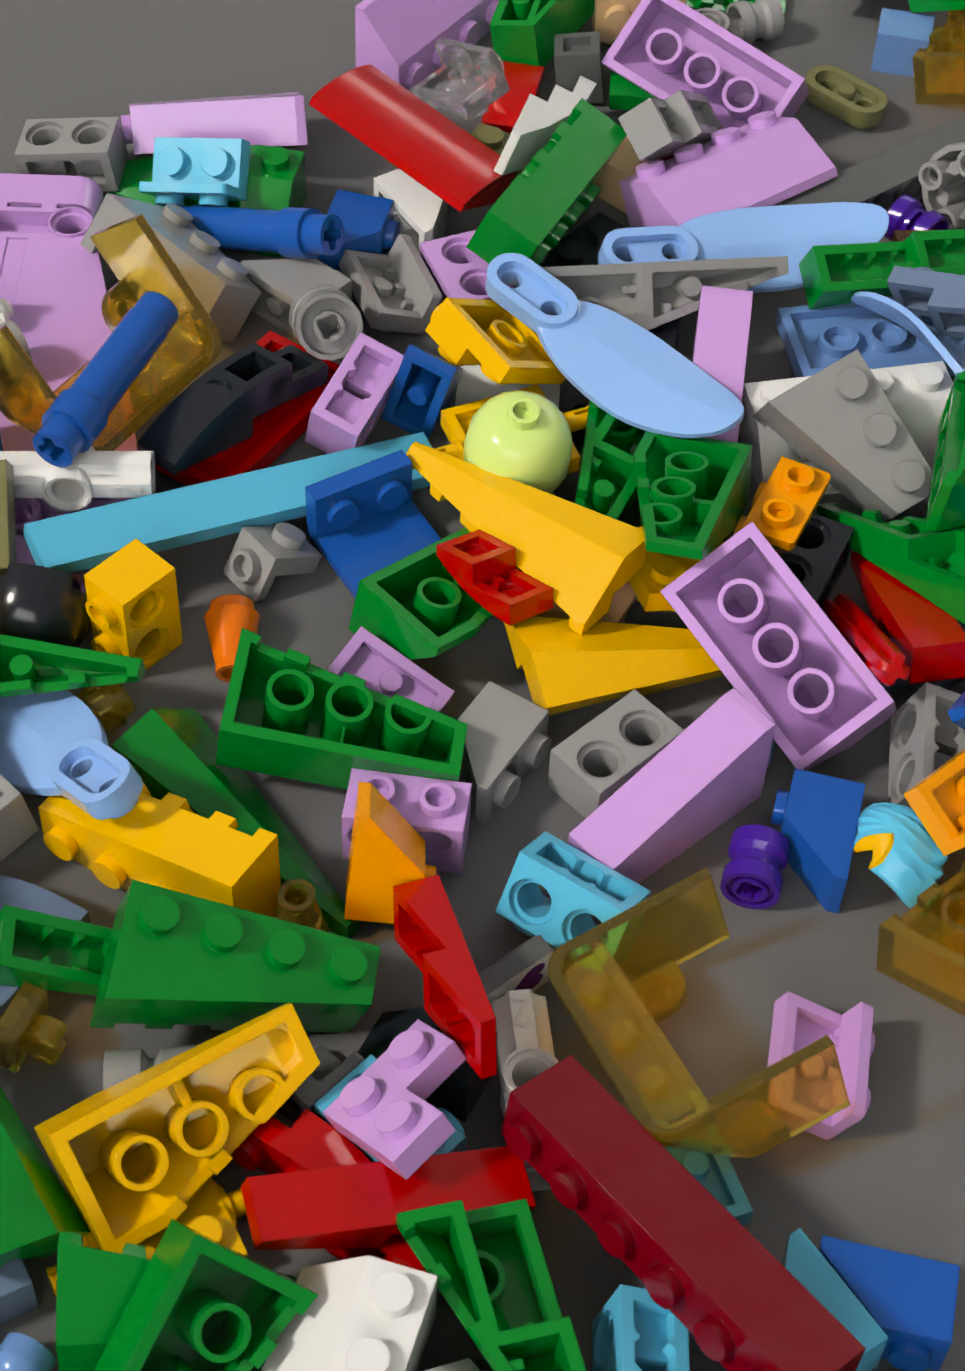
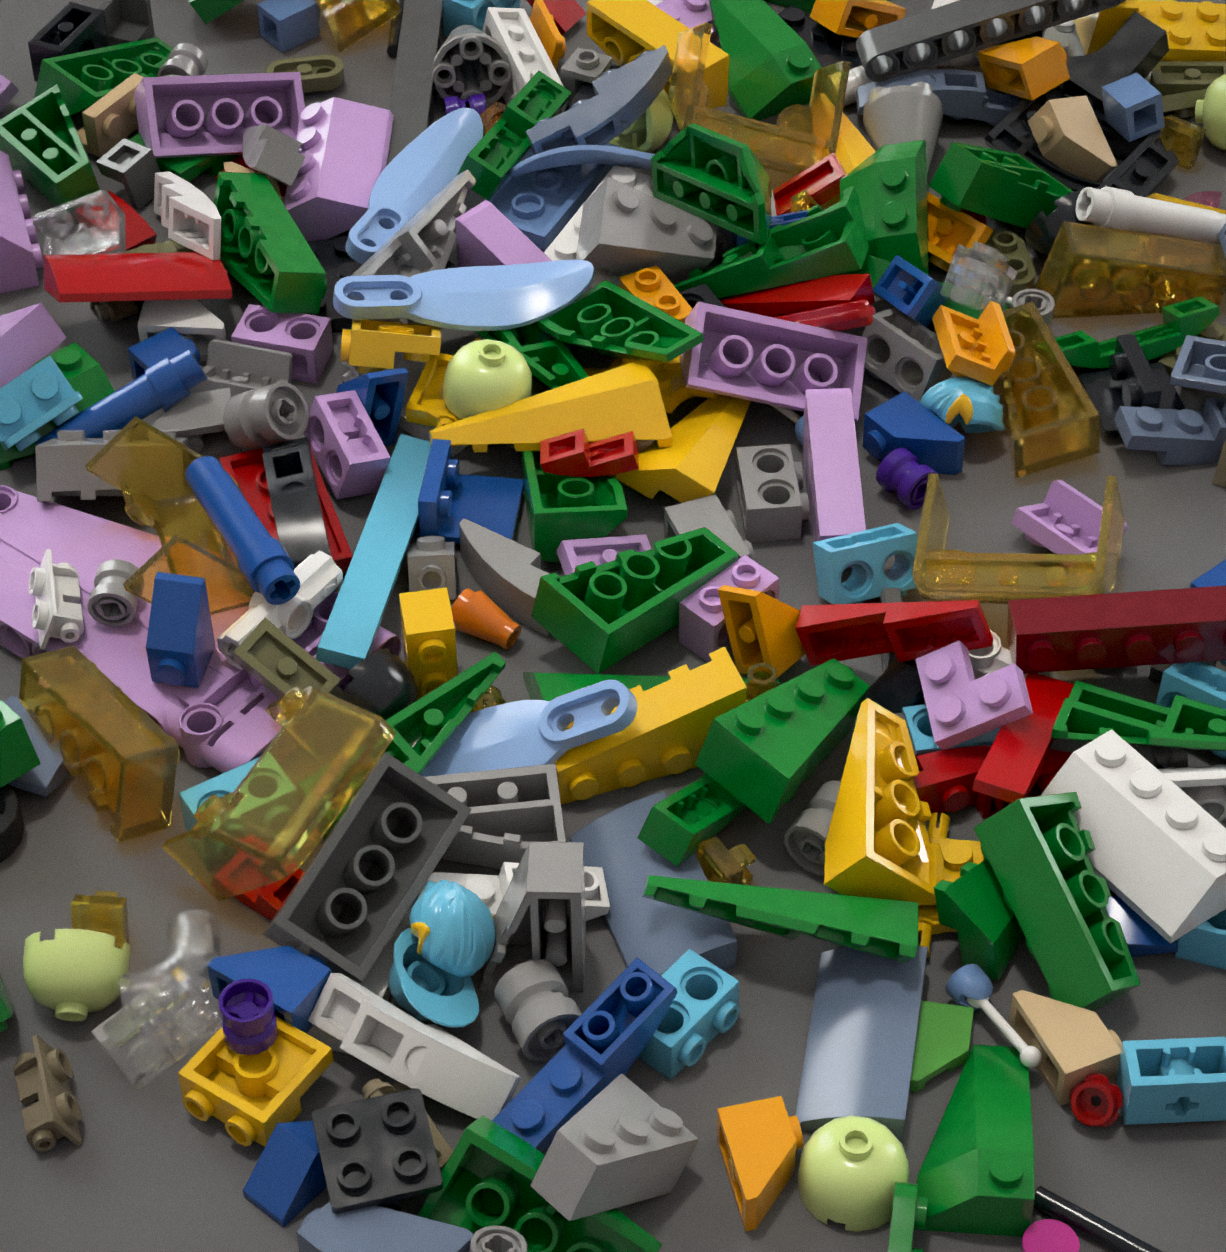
camera: 50 degrees left, 5 degrees down
(306, 607) = (503, 570): none -> light grey slope

